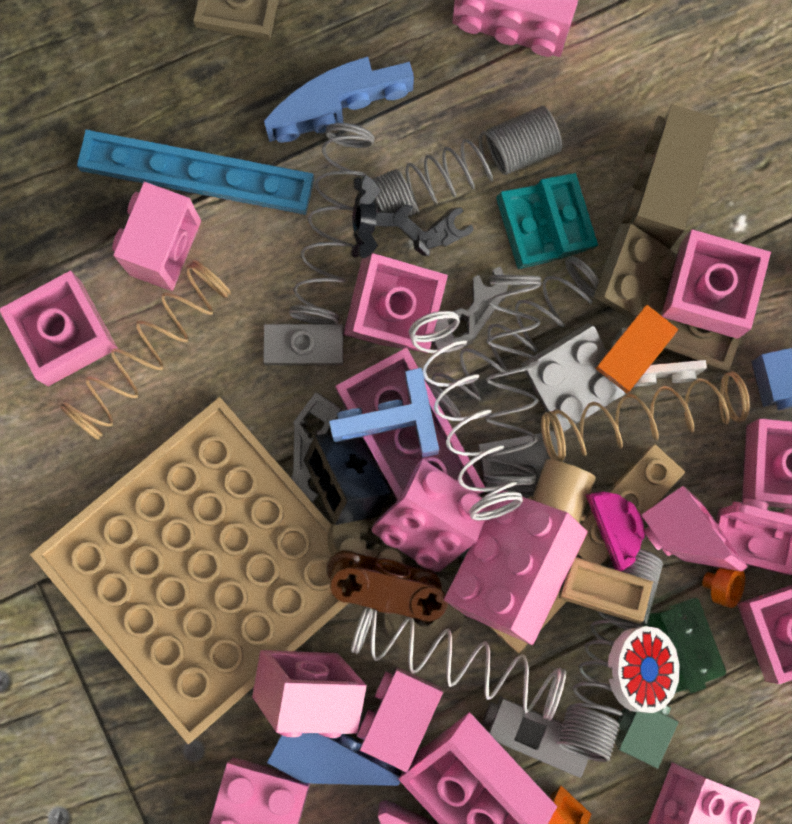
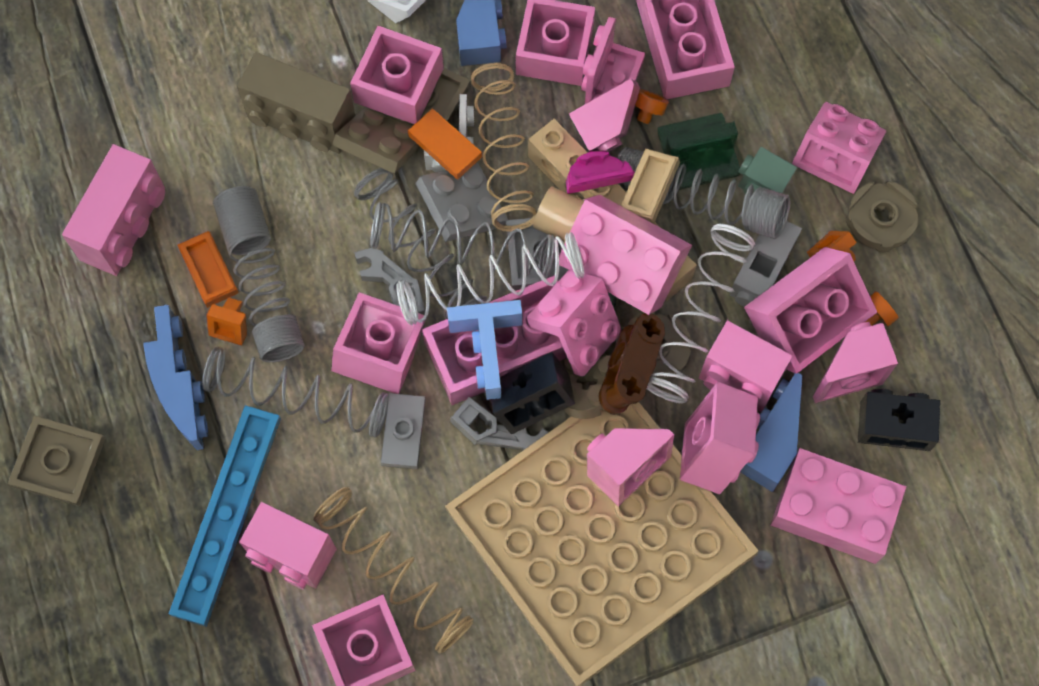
camera: 85 degrees left, 10 degrees down
(267, 584) = (627, 459): none -> bright pink slope
(366, 218) = (300, 353): black piece -> none
(407, 143) = (227, 322): none -> orange tile
(468, 115) = (208, 269): none -> orange tile
(546, 221) = (316, 213): teal slope -> none
(644, 669) = (717, 162): tile -> none

